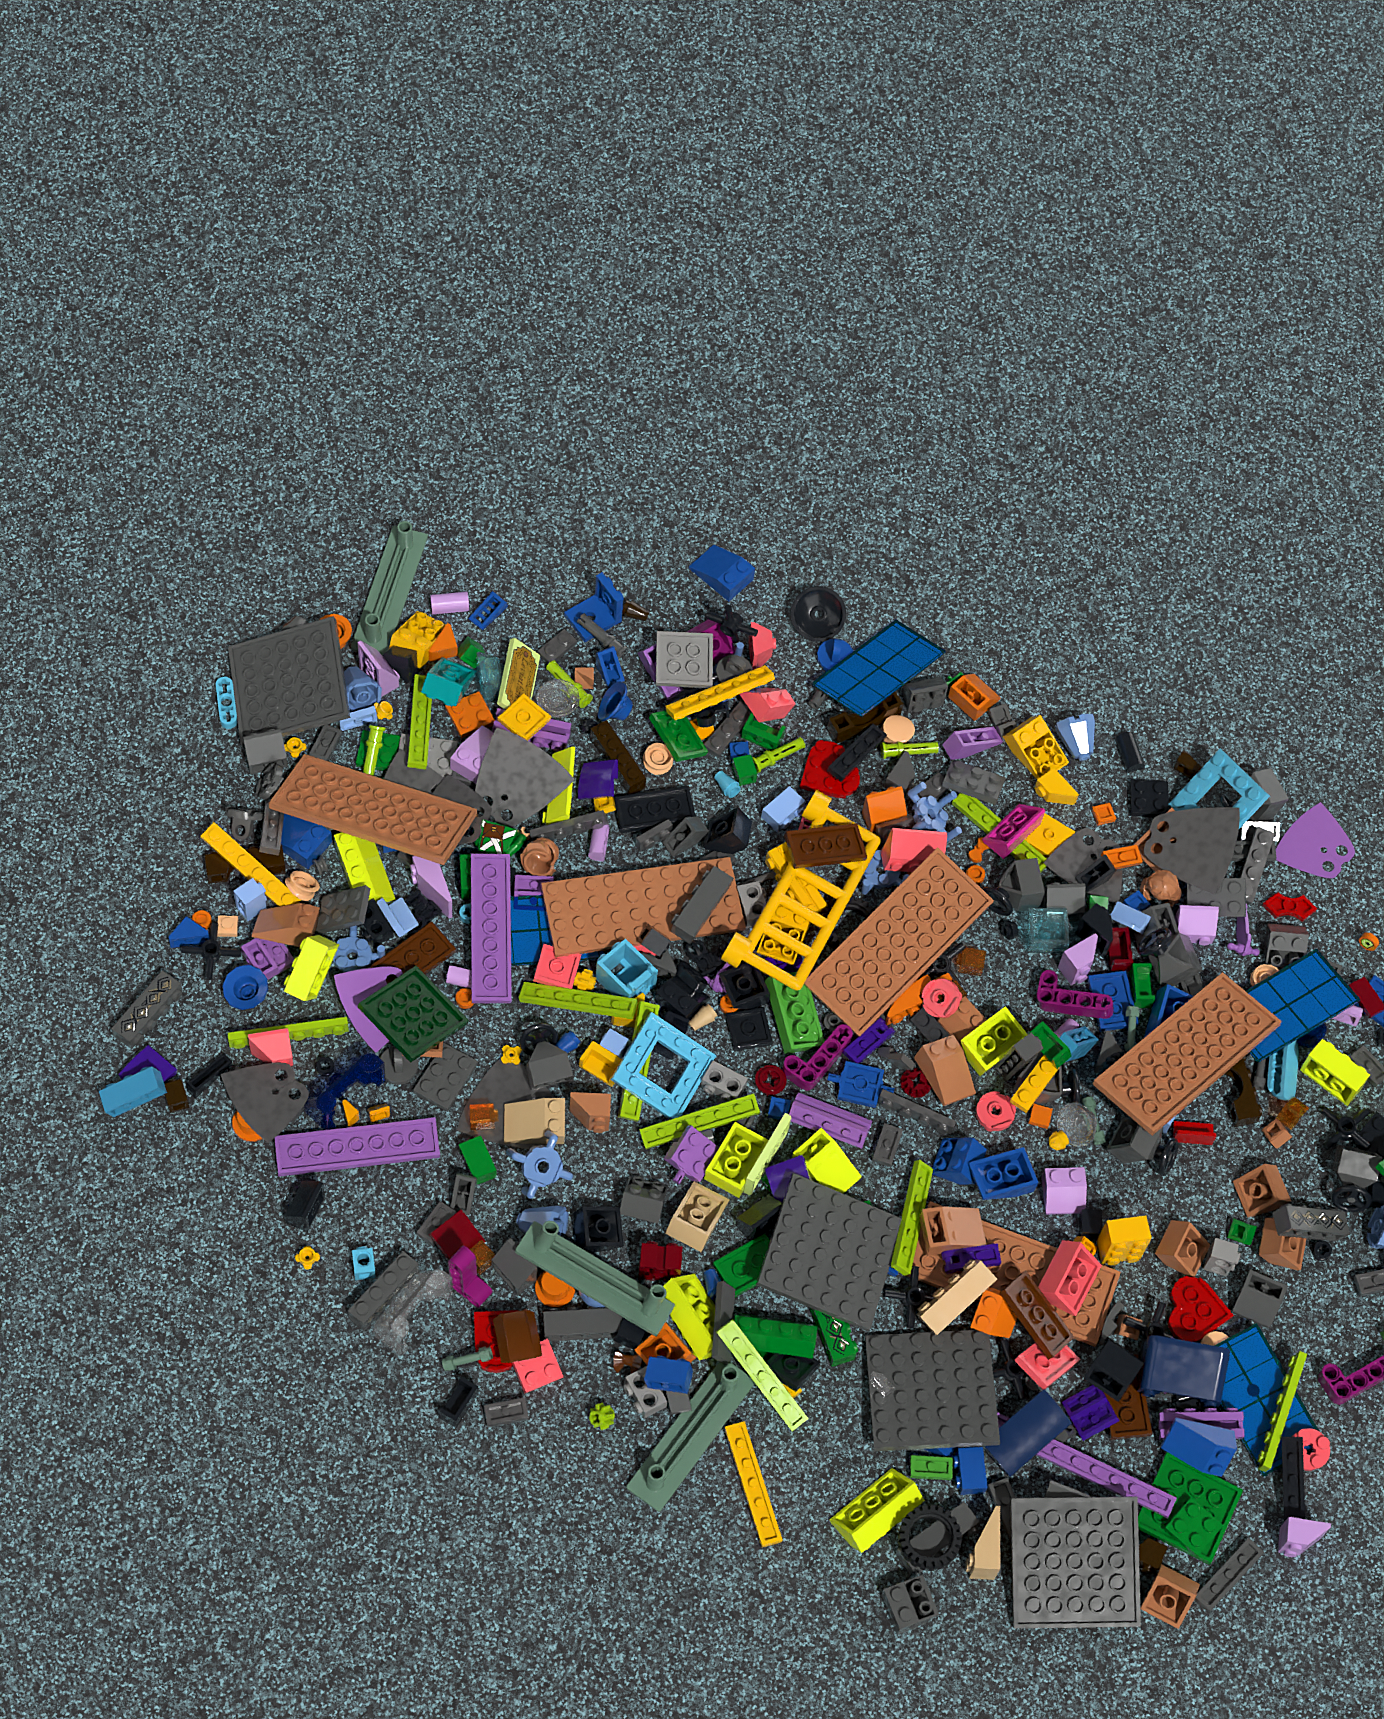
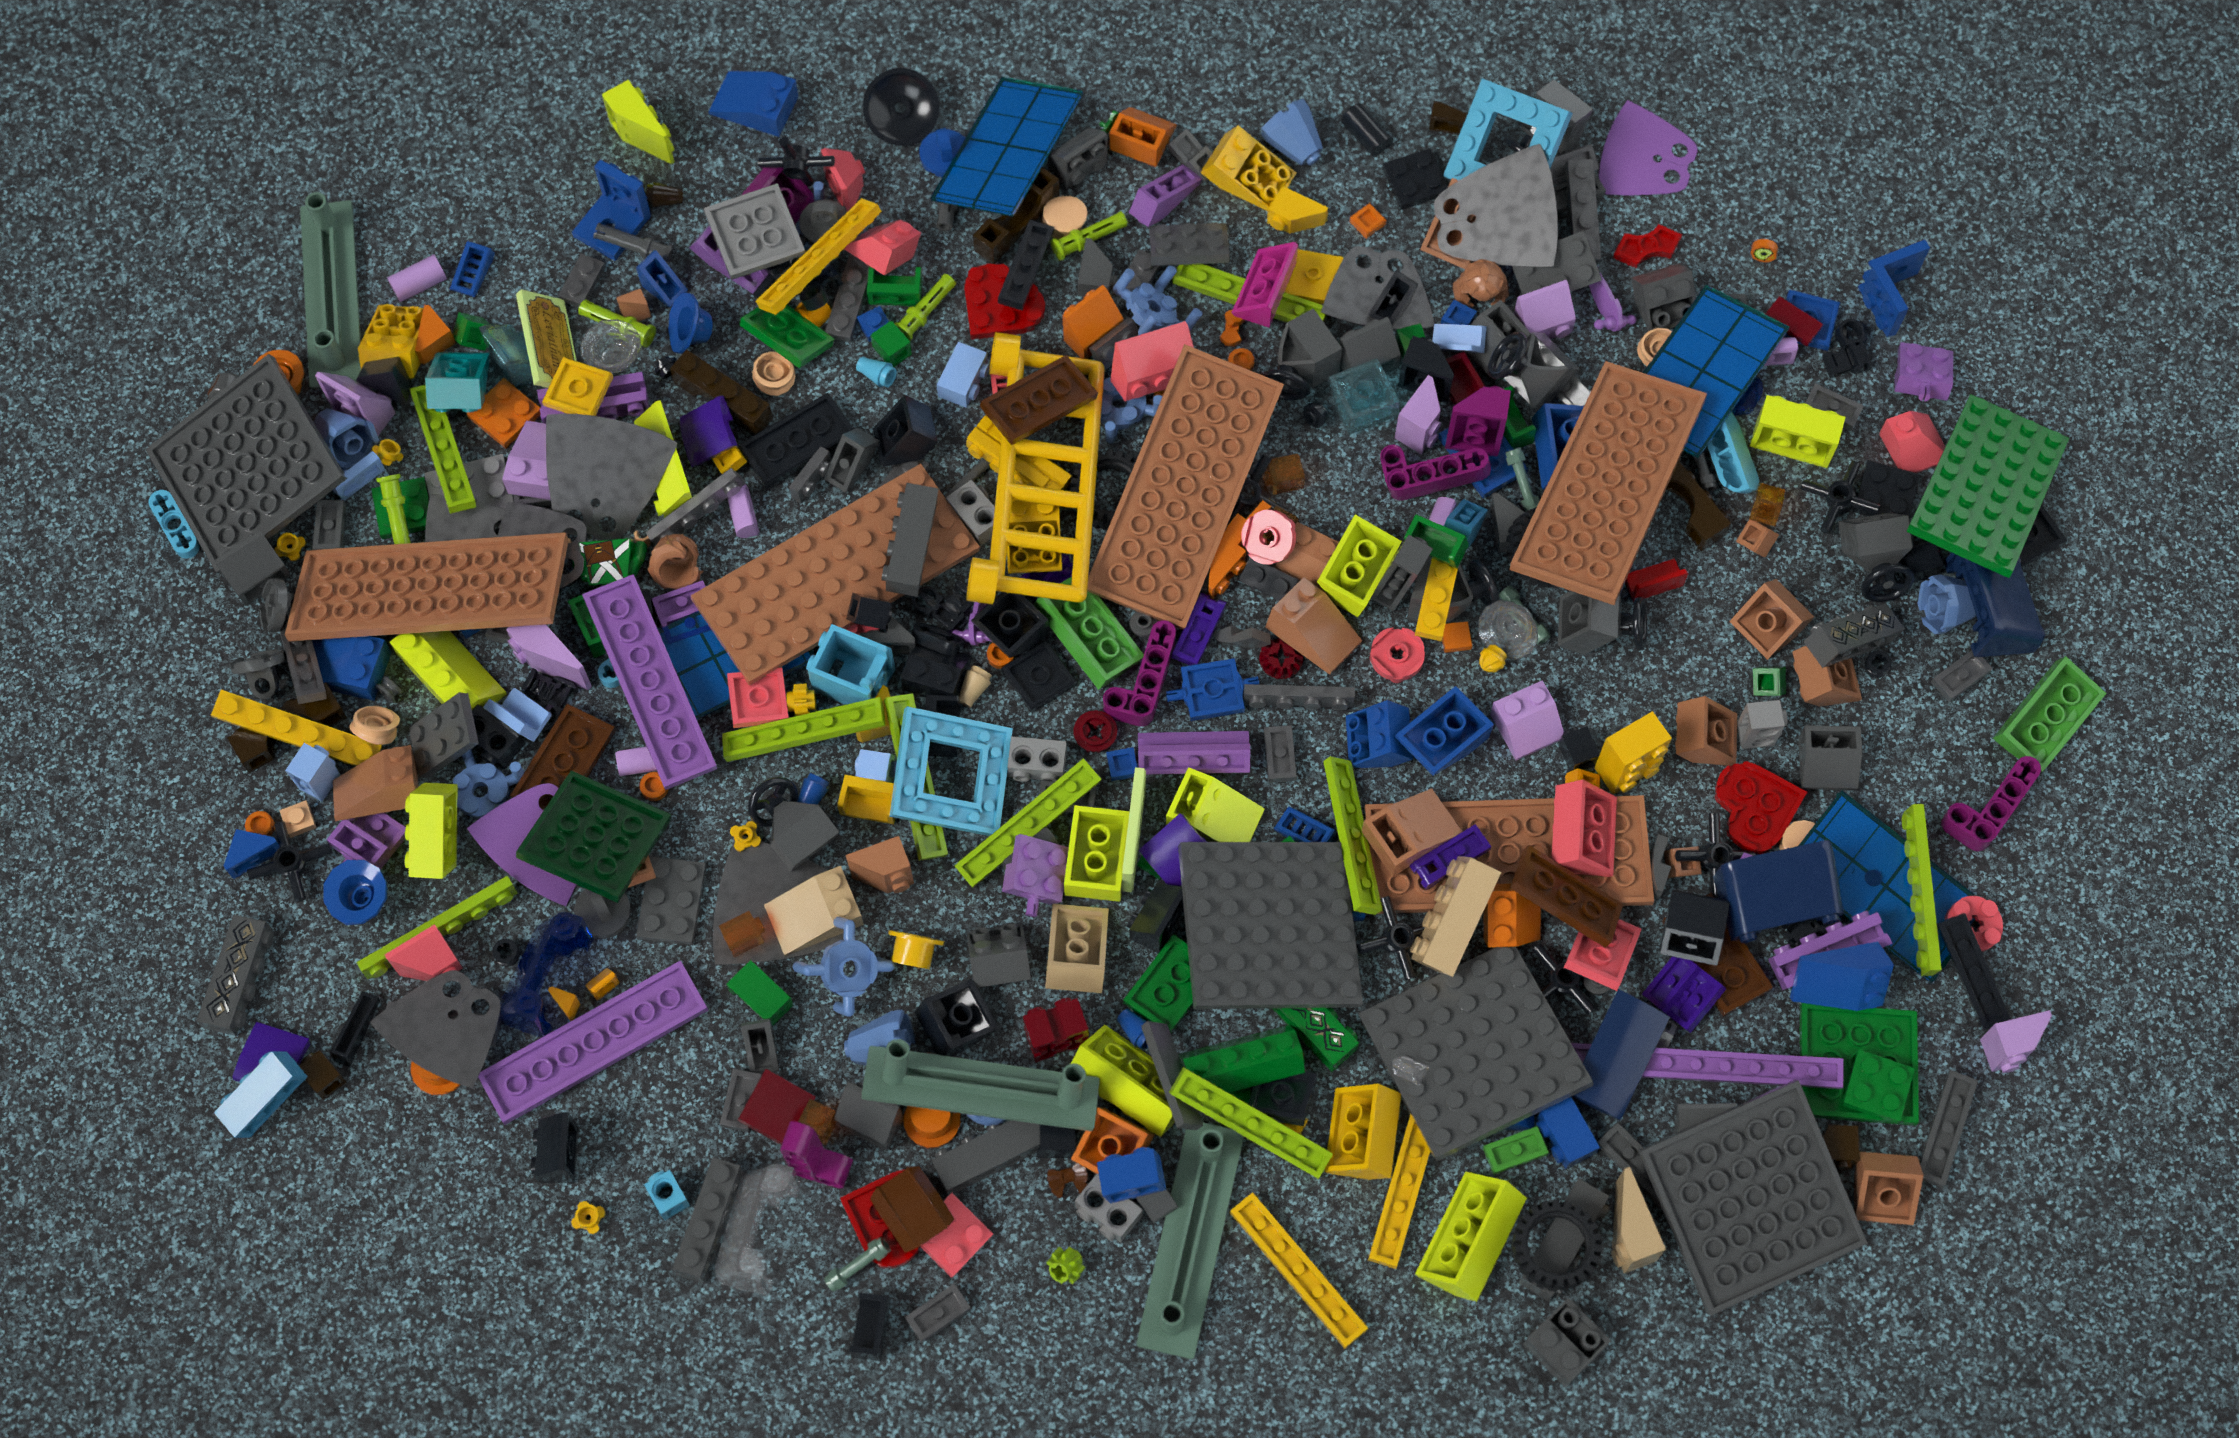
camera: 15 degrees left, 5 degrees up
(589, 1172) = (913, 949): none -> yellow piece
(637, 555) = (637, 122): none -> neon yellow slope
(835, 1413) = (1363, 1131): none -> yellow slope
(840, 1466) = (1400, 1198): none -> yellow plate
(893, 1209) = (1321, 829): none -> blue slope
(1116, 977) = (1479, 421): none -> magenta slope
(1124, 856) = (1418, 263): orange plate -> none

